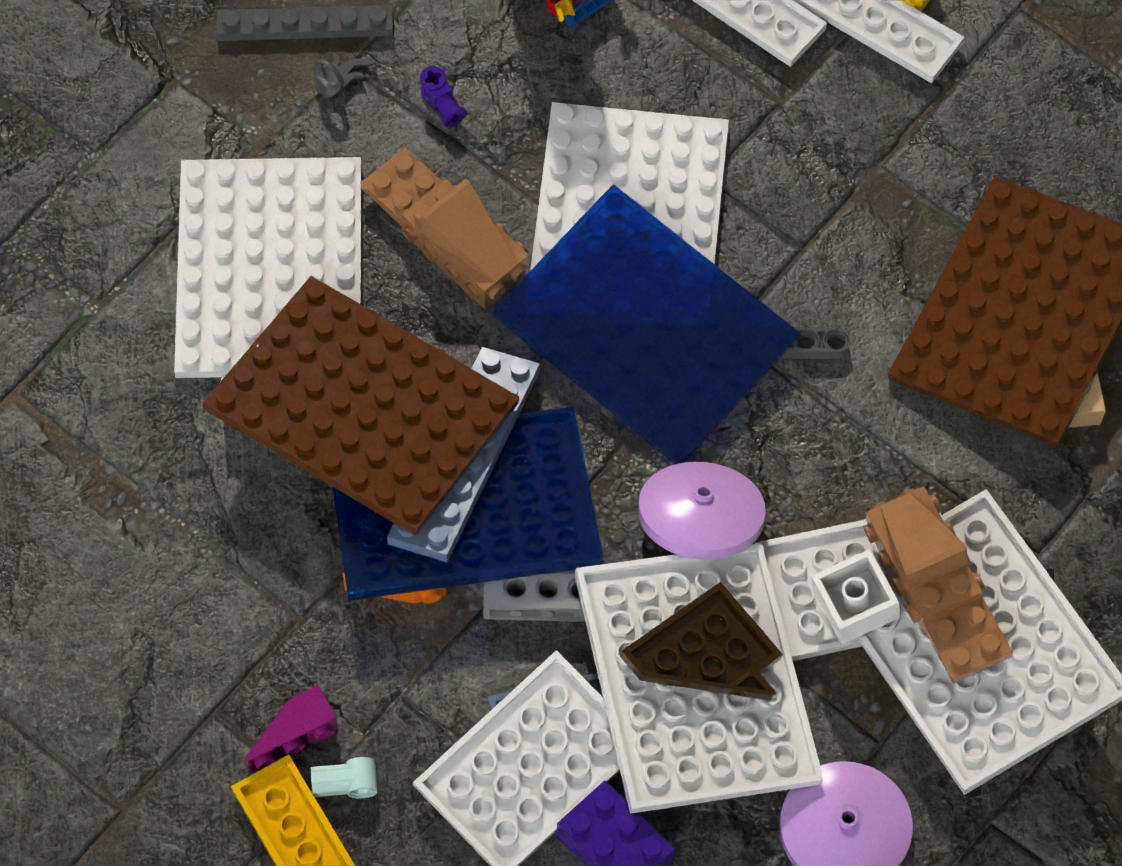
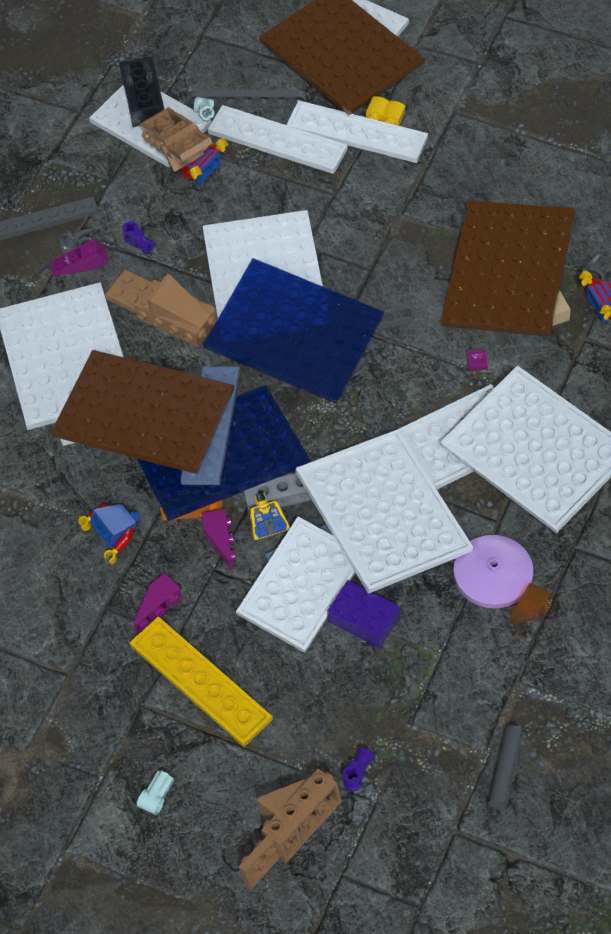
camera: 10 degrees left, 5 degrees down
(262, 582) = (113, 525): none -> blue torso
(342, 109) = (83, 258): none -> magenta slope
(354, 778) = (200, 619): light aqua piece -> none
(422, 635) = (217, 535): none -> magenta slope
(507, 637) = (266, 518): none -> torso
(701, 510) = (357, 421): lavender dish -> none
(707, 648) = (385, 491): dark brown wing -> none
(856, 596) = (461, 441): white brick -> none
(927, 456) = (477, 360): none -> magenta plate
(936, 582) = (505, 421): medium nougat wedge -> none

